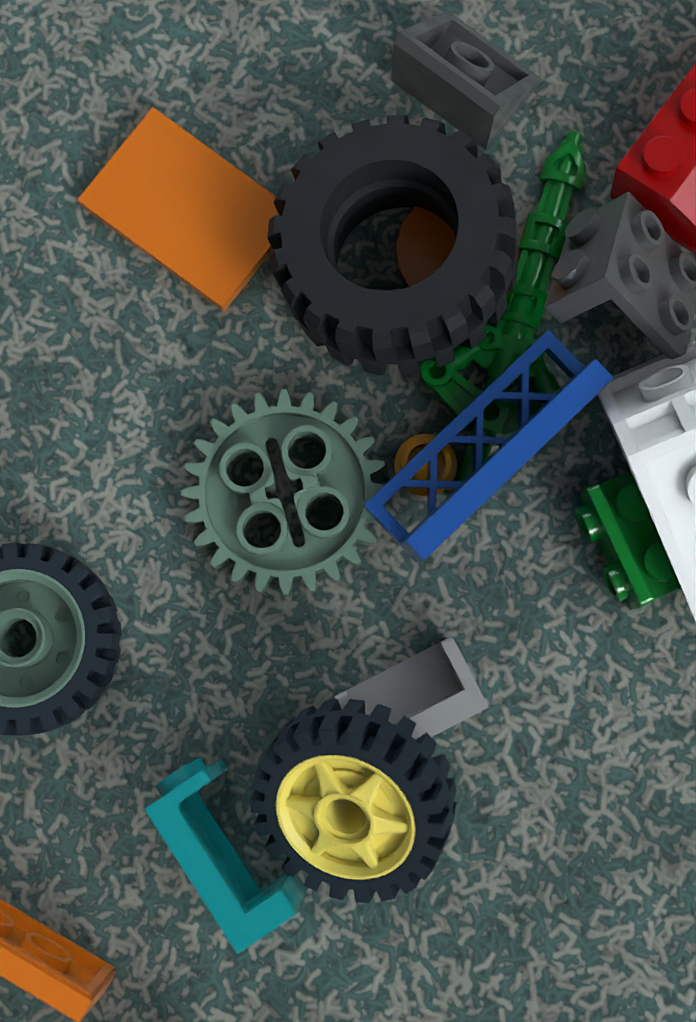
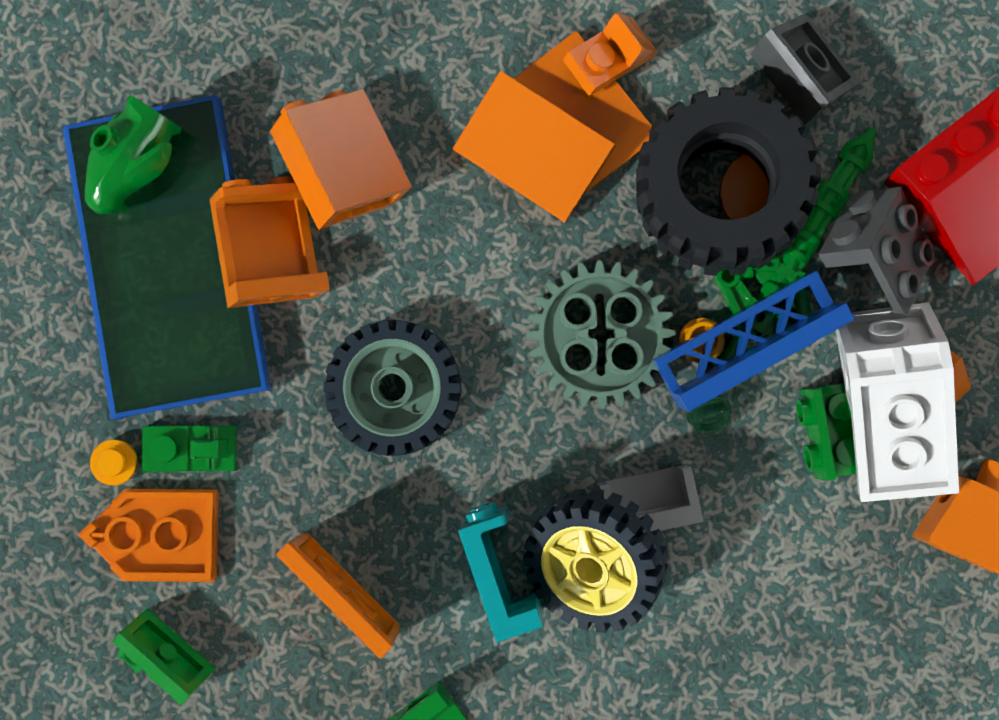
camera: 10 degrees right, 5 degrees up
(133, 269) = (533, 146): none -> orange tile
(203, 123) = (609, 54): none -> orange slope
(461, 559) = (710, 416): none -> clear green plate

